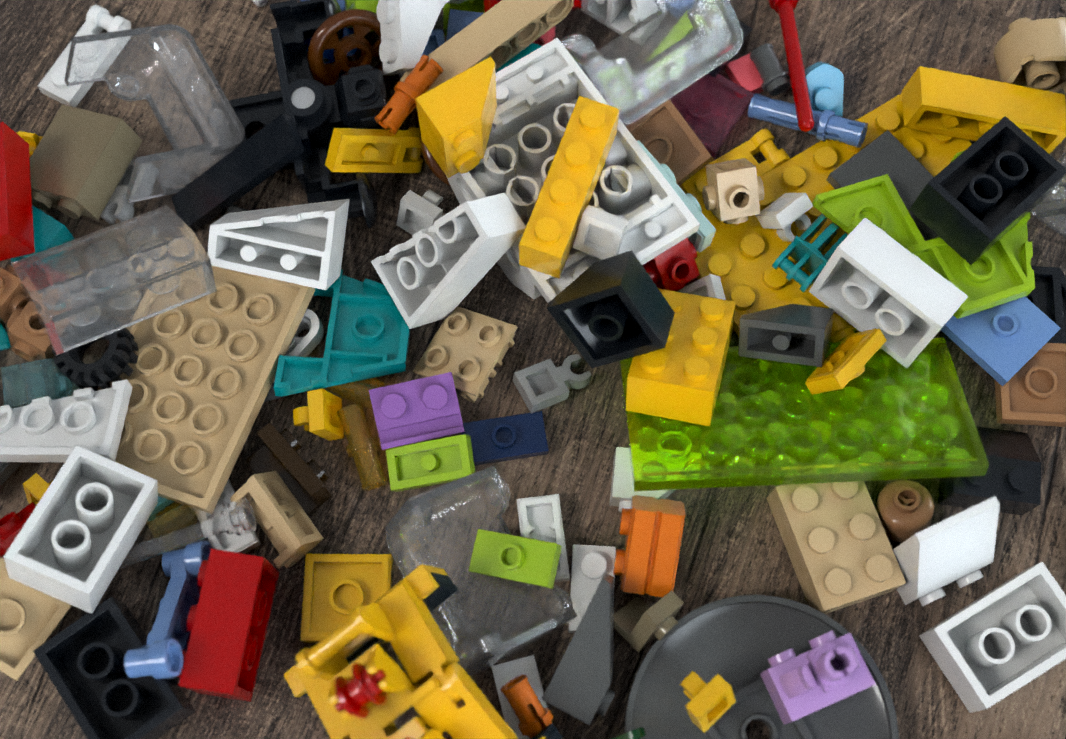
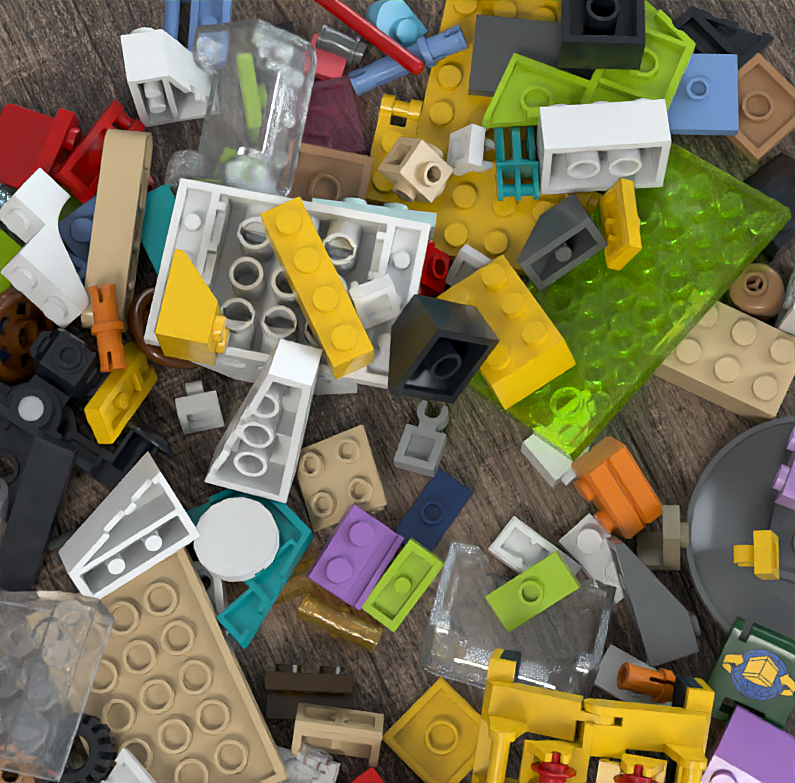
camera: 45 degrees left, 5 degrees up
(320, 415) = (286, 630): yellow tile -> none
(349, 318) = (236, 539): none -> white tile

